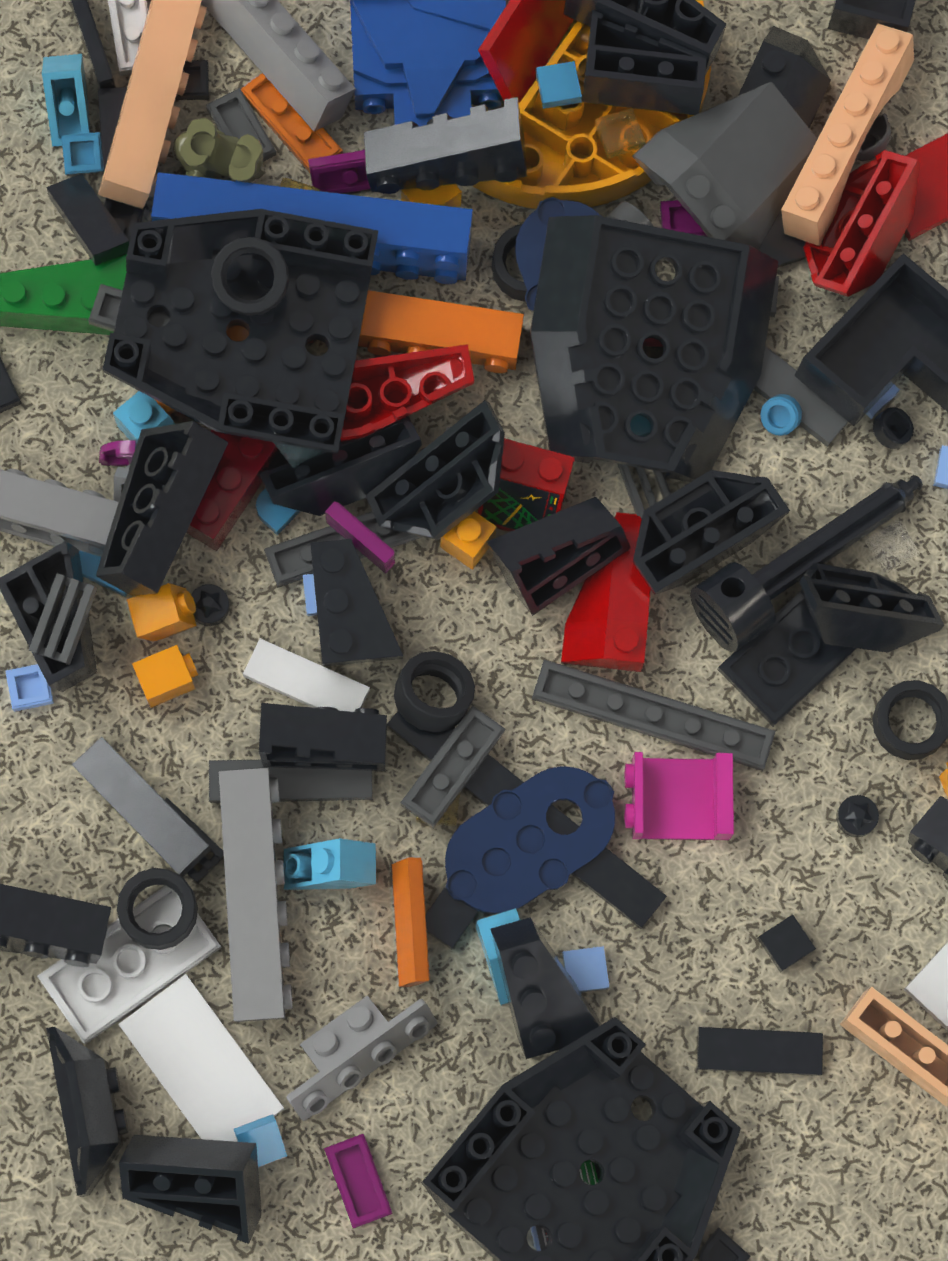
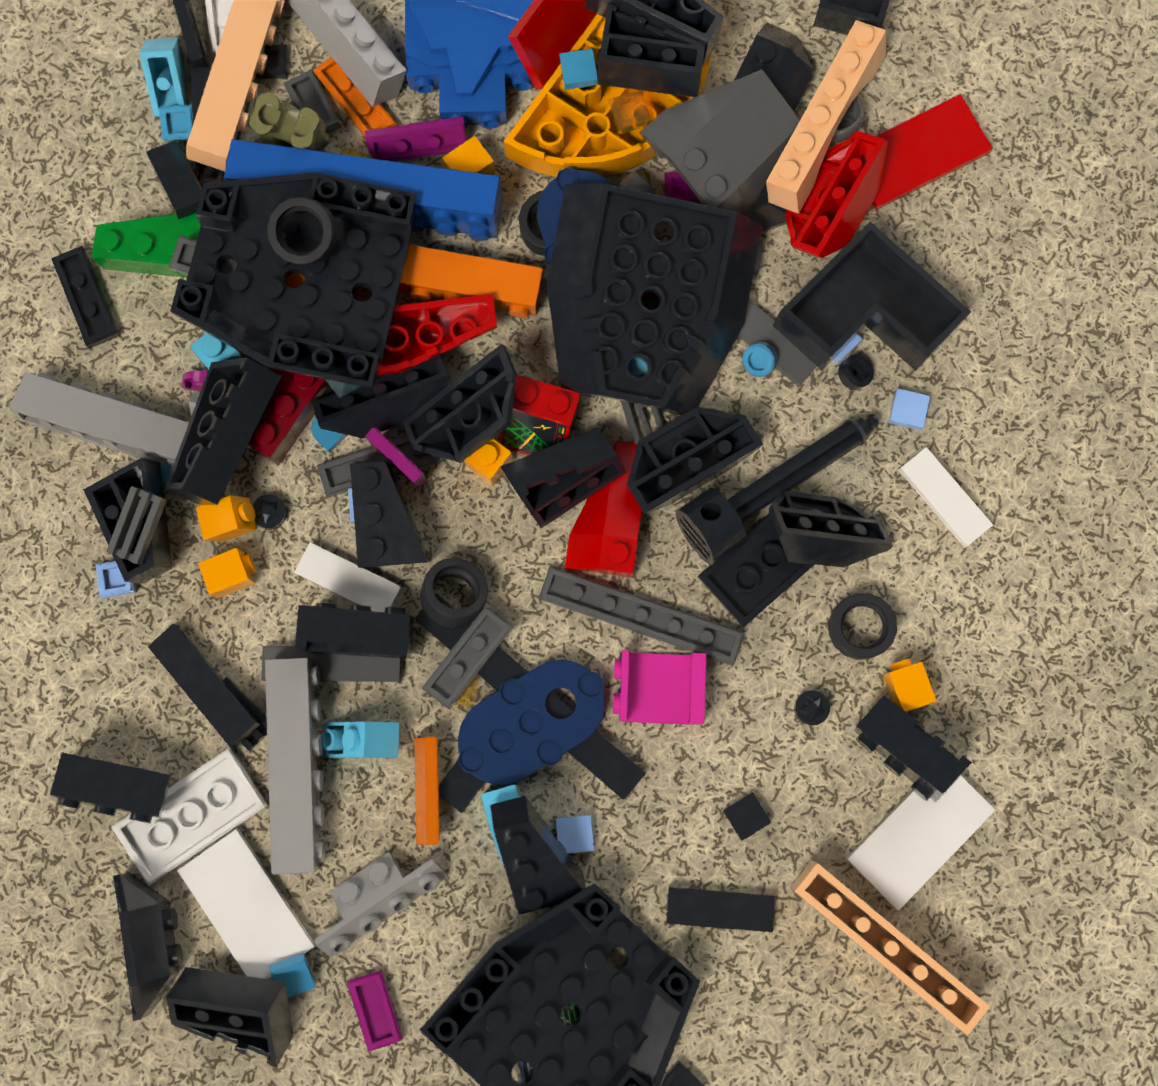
camera: 10 degrees right, 5 degrees up
(148, 878) = (184, 771): black tyre -> none
(448, 150) = (480, 124): wedge -> none

